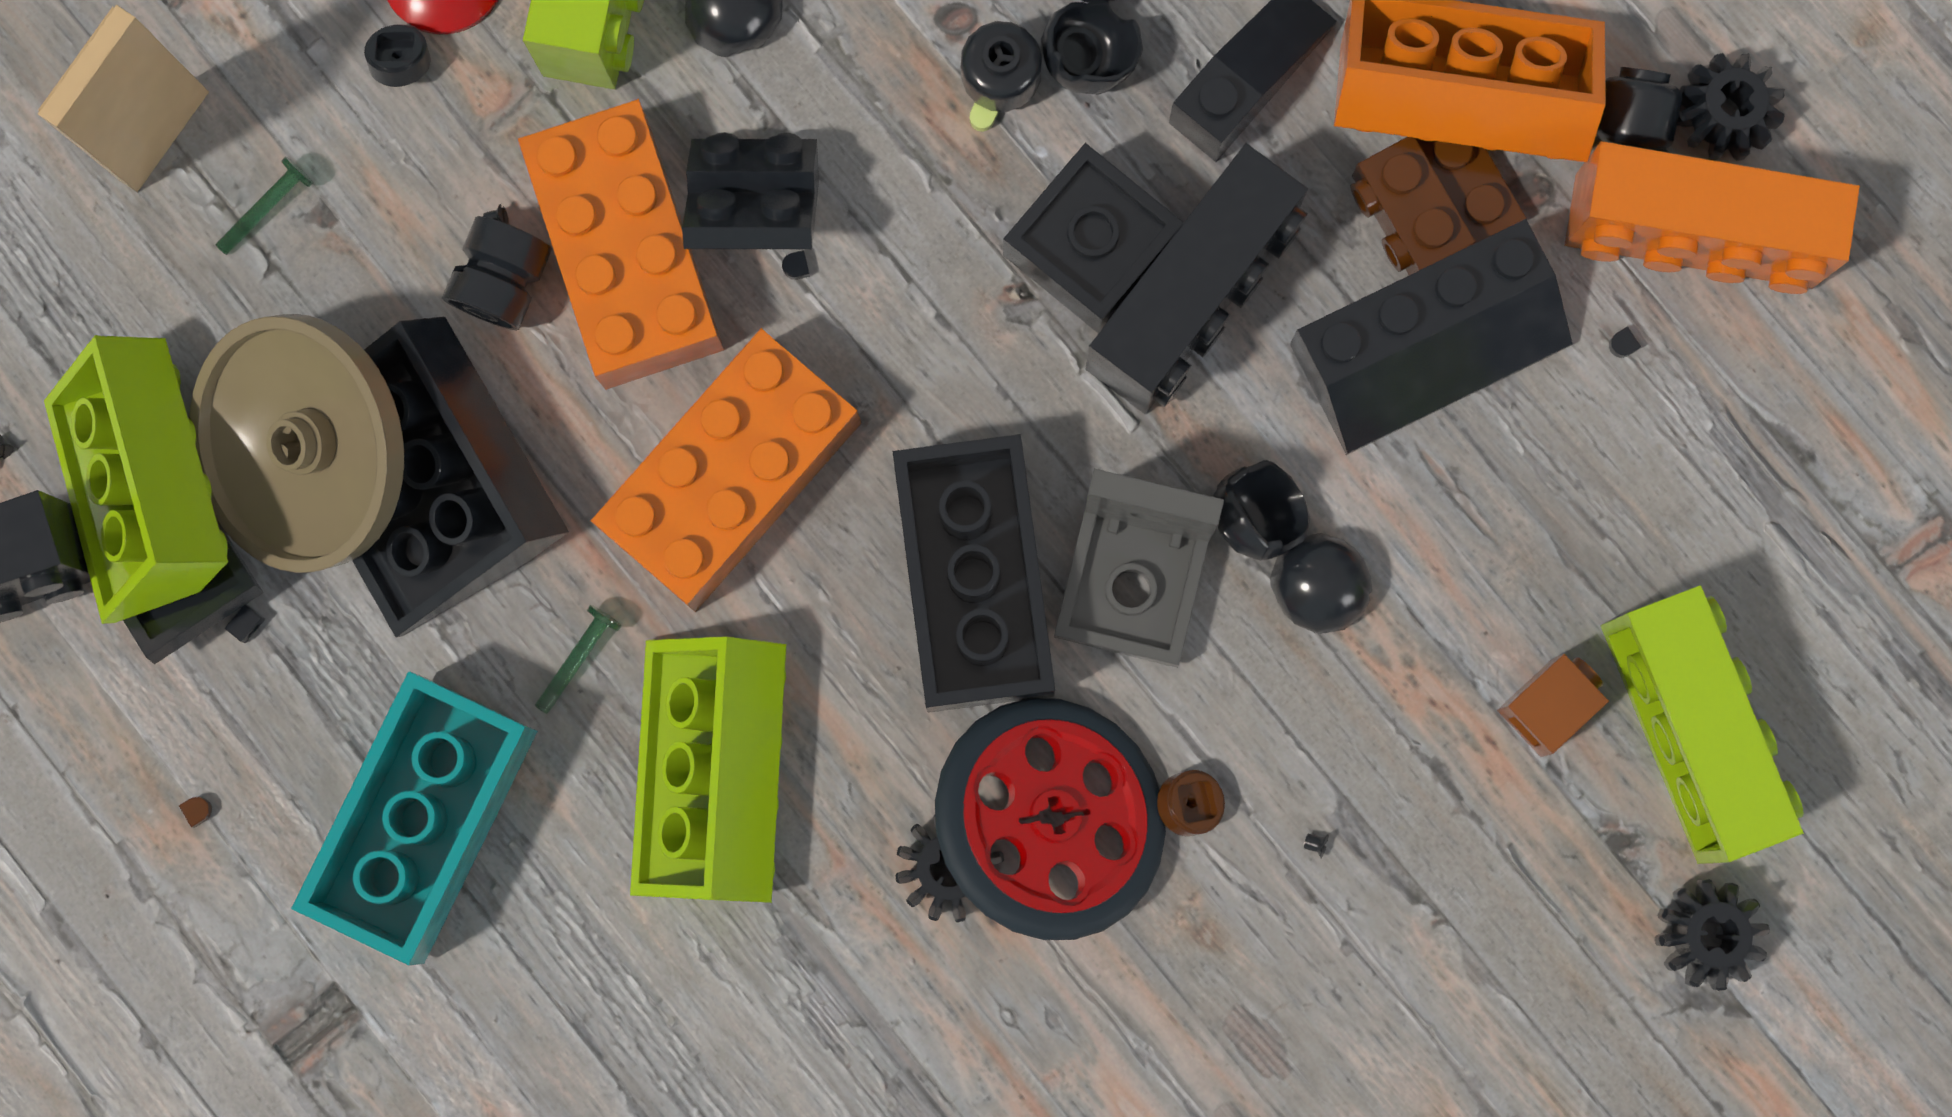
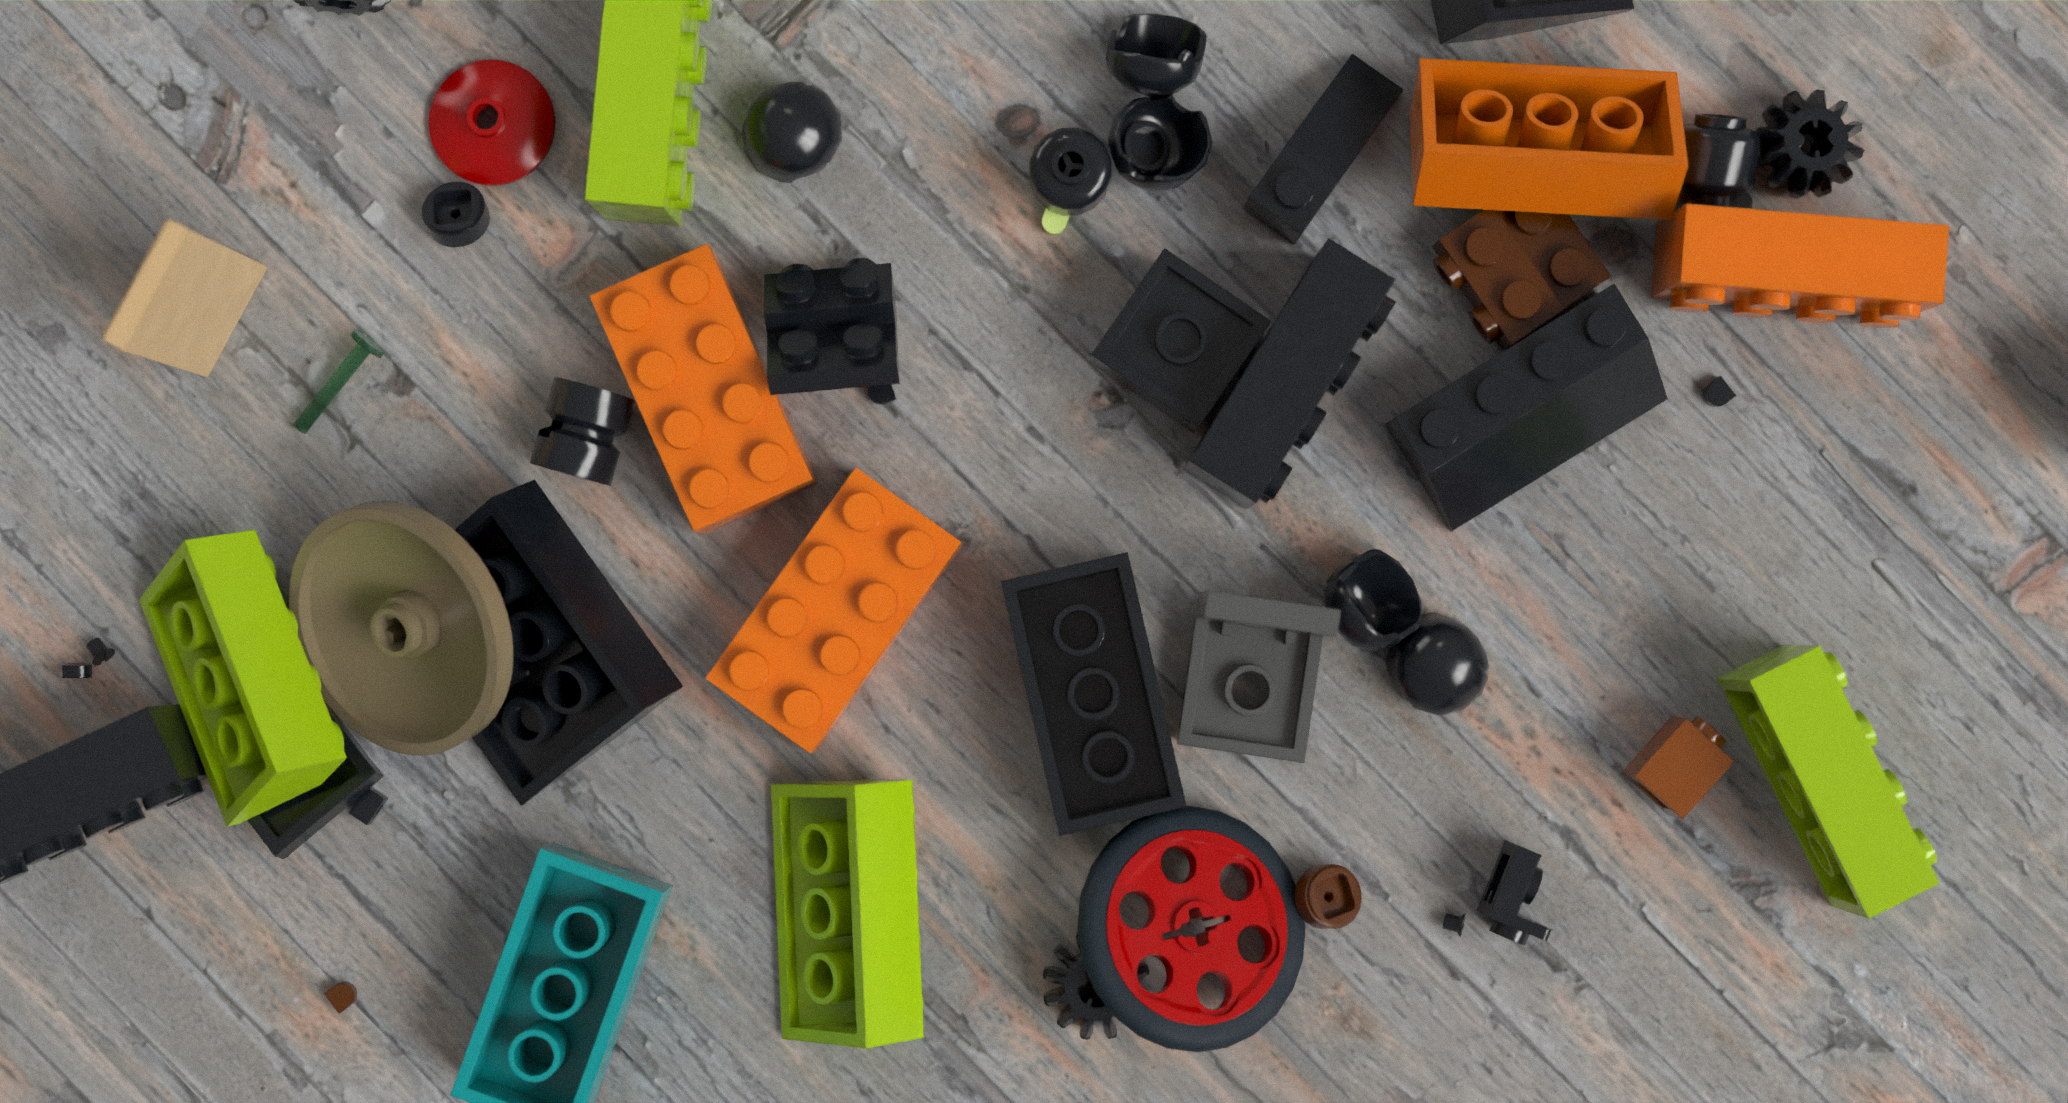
camera: 10 degrees left, 5 degrees up
(499, 214) = (574, 370): black piece -> none
(576, 657) = (724, 771): clear green pin -> none
(1376, 807) = (1511, 883): none -> black bracket
(1737, 935) = (1875, 984): black gear -> none

